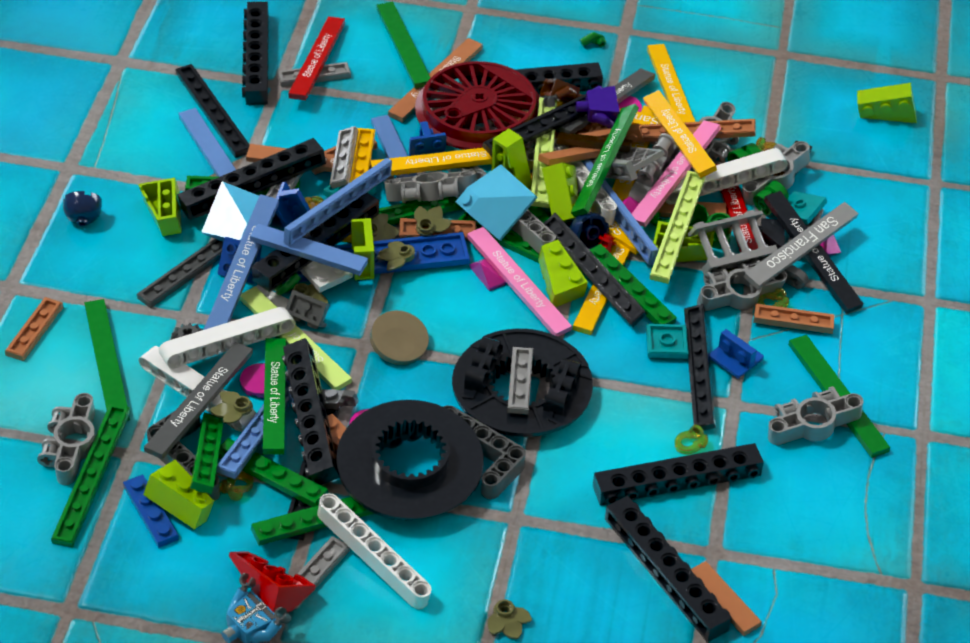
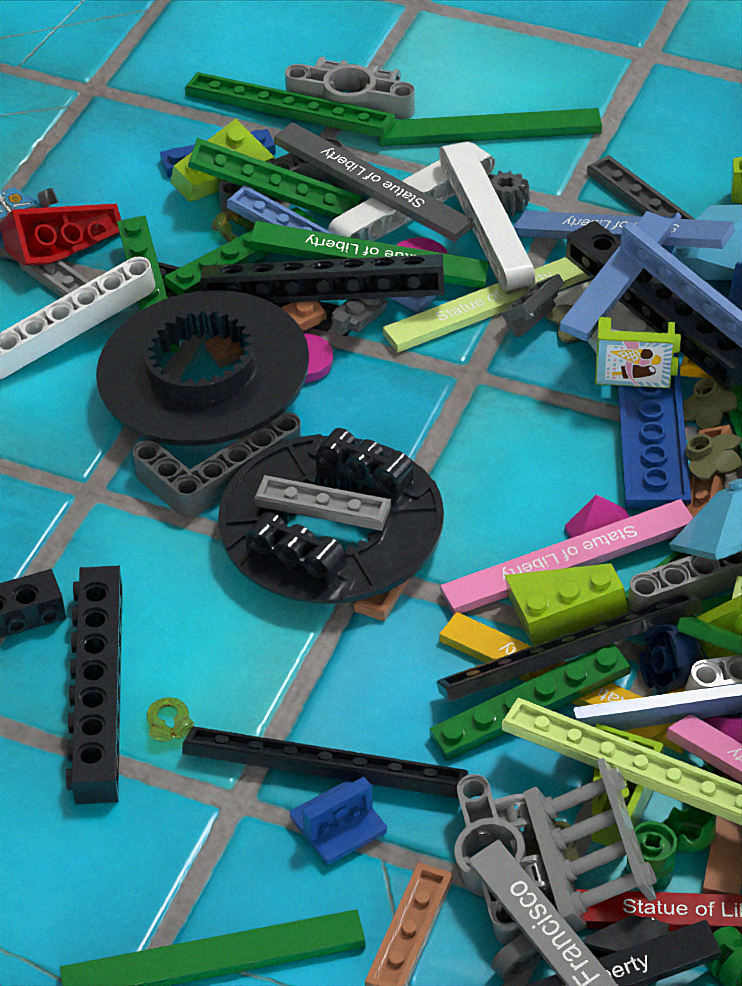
camera: 105 degrees right, 0 degrees up
(34, 329) = (561, 70): nougat tile -> none
(233, 407) = (350, 209): olive plate -> none
(396, 254) = (638, 408): olive plate -> none
(399, 337) = (462, 397): dark tan piece -> none
(607, 241) = (641, 682): red plate -> none
(666, 341) = (393, 727): teal plate -> none
(779, 295) = (478, 917): clear yellow piece -> none
(791, 425) = (167, 916): light grey piece -> none

